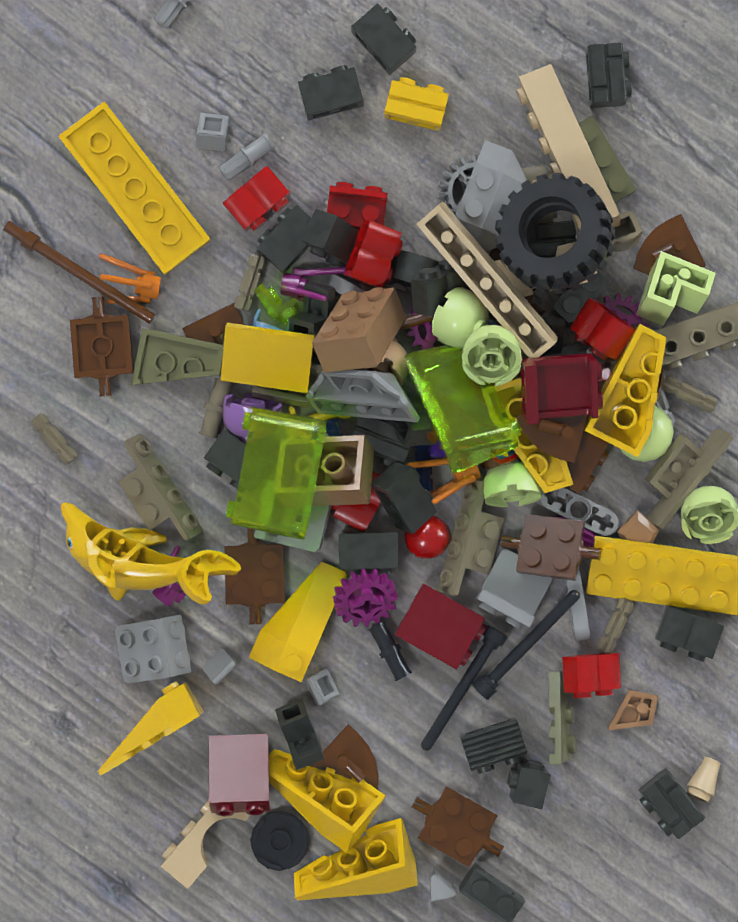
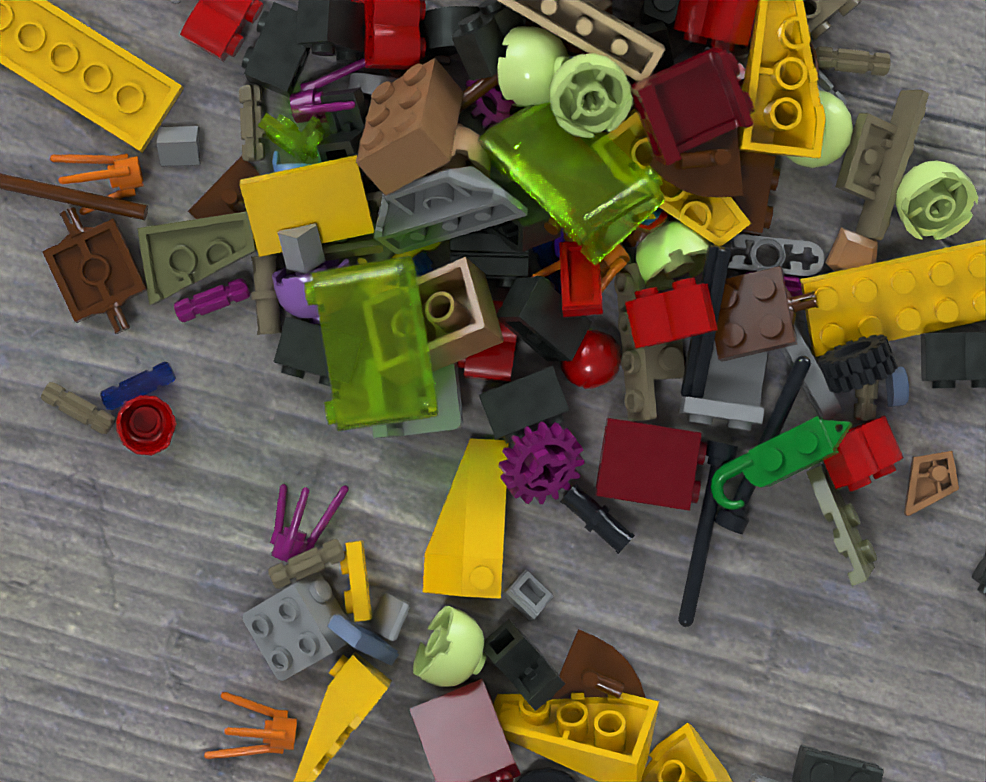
camera: 15 degrees left, 0 degrees up
(97, 468) = (145, 425): none -> red hair
(100, 438) = (137, 385): none -> clear blue axle
(110, 718) = (277, 733): none -> orange plant
(126, 563) = (224, 529): yellow animal -> none
(154, 492) = (228, 428): dark tan bracket -> none
(173, 608) = (306, 563): none -> dark tan axle
(174, 397) = (211, 300): none -> magenta axle
(192, 280) = (179, 146): none -> light grey slope
(194, 675) = (363, 639): none -> sand blue tile
(201, 645) = (358, 598): none -> yellow plate
(252, 385) = (302, 248): none -> light grey slope
(253, 706) = (452, 649): none -> yellowish green cylinder
(260, 576) = (392, 486): reddish brown plate -> none
(437, 482) = (579, 282): none -> red tile
(457, 826) = (762, 707): reddish brown plate -> none
(493, 528) = (670, 315): none -> red brick
(493, 744) = (771, 588): pearl dark grey brick -> none
(516, 541) = (701, 345): none -> black axle
(528, 783) = (833, 620): pearl dark grey brick -> none
(533, 656) = (781, 457): none -> green plate
(611, 610) = (857, 363): none -> black tyre
(635, 636) = (897, 388): none -> sand blue tile

